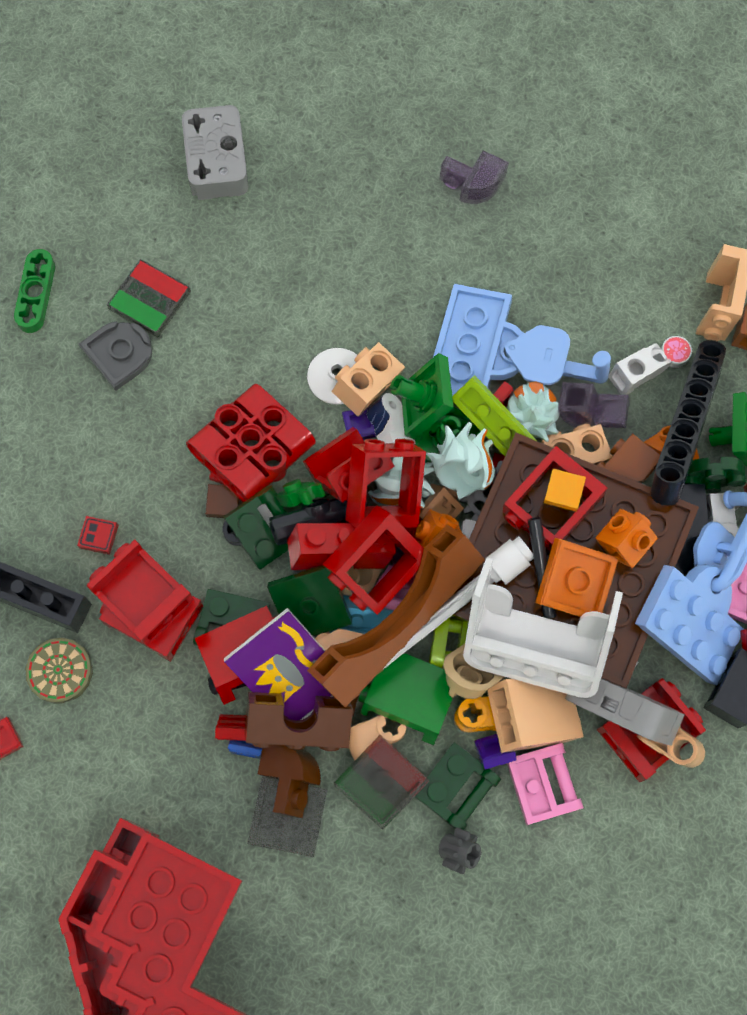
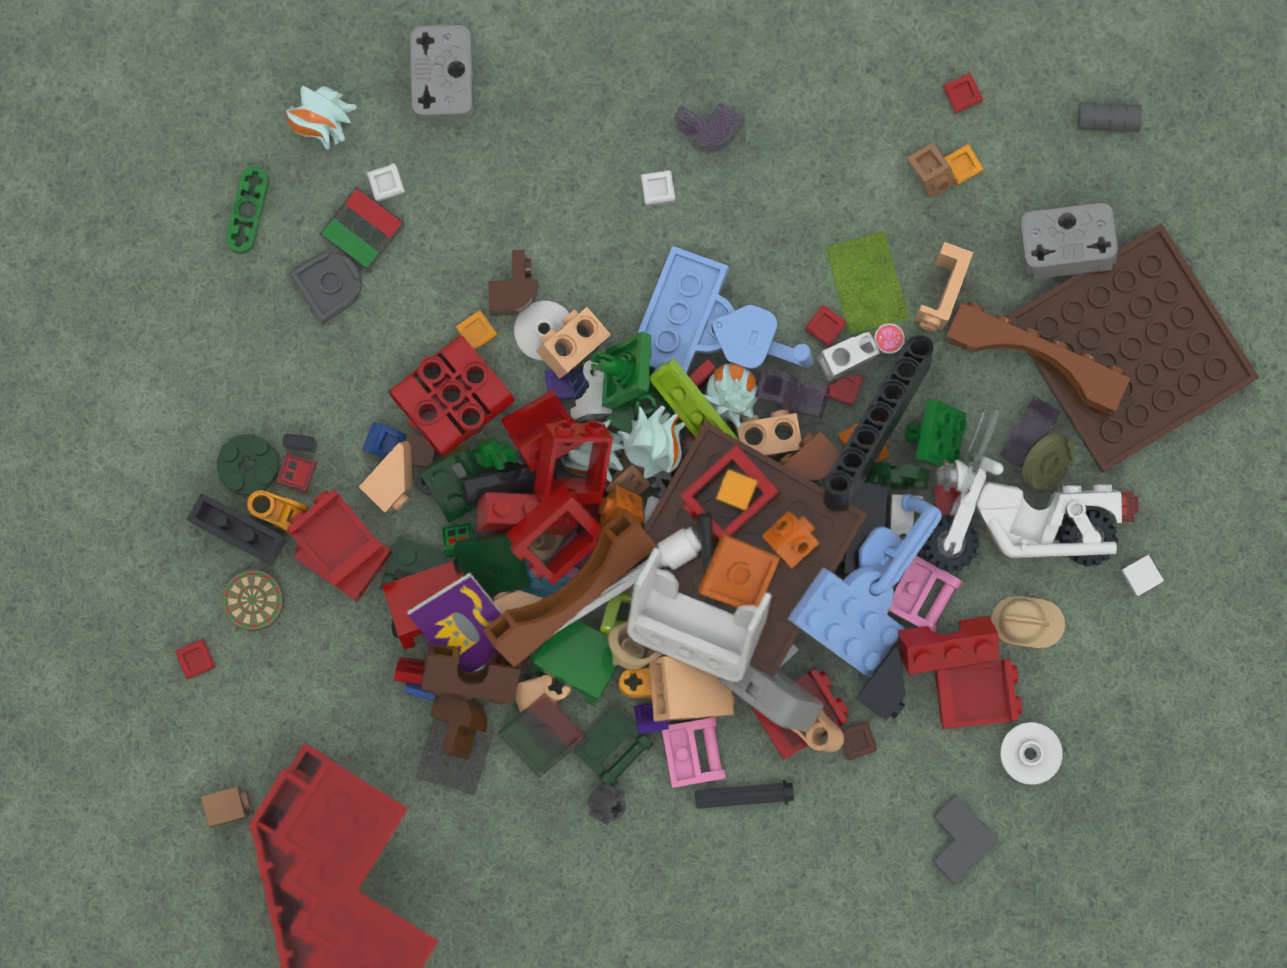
camera: 10 degrees right, 10 degrees up
(39, 900) = (226, 806): none -> medium nougat brick
(62, 540) = (233, 454): none -> dark green plate
(79, 573) = (279, 510): none -> light orange piece
(98, 504) = (299, 443): none -> black tile
(99, 194) = (320, 115): none -> light aqua hair
(169, 254) = (385, 182): none -> white tile
(186, 496) = (382, 440): none -> blue slope
(196, 529) = (391, 479): none -> light nougat slope
(261, 581) = (453, 533): none -> green tile
(271, 379) = (476, 330): none -> light orange tile
(306, 342) = (513, 295): none -> reddish brown brick
(432, 236) = (658, 188): none -> white tile
(606, 825) = (744, 795): none -> black axle
(614, 343) = (825, 326): none -> red tile
(643, 402) = (845, 389): none -> red tile
(645, 302) = (867, 282): none -> clear neon green tile
(690, 195) = (931, 170): none -> medium nougat bracket
(704, 131) = (962, 93): none -> red tile
(716, 191) = (964, 164): none -> light orange tile
(717, 753) = (858, 741): none -> reddish brown tile

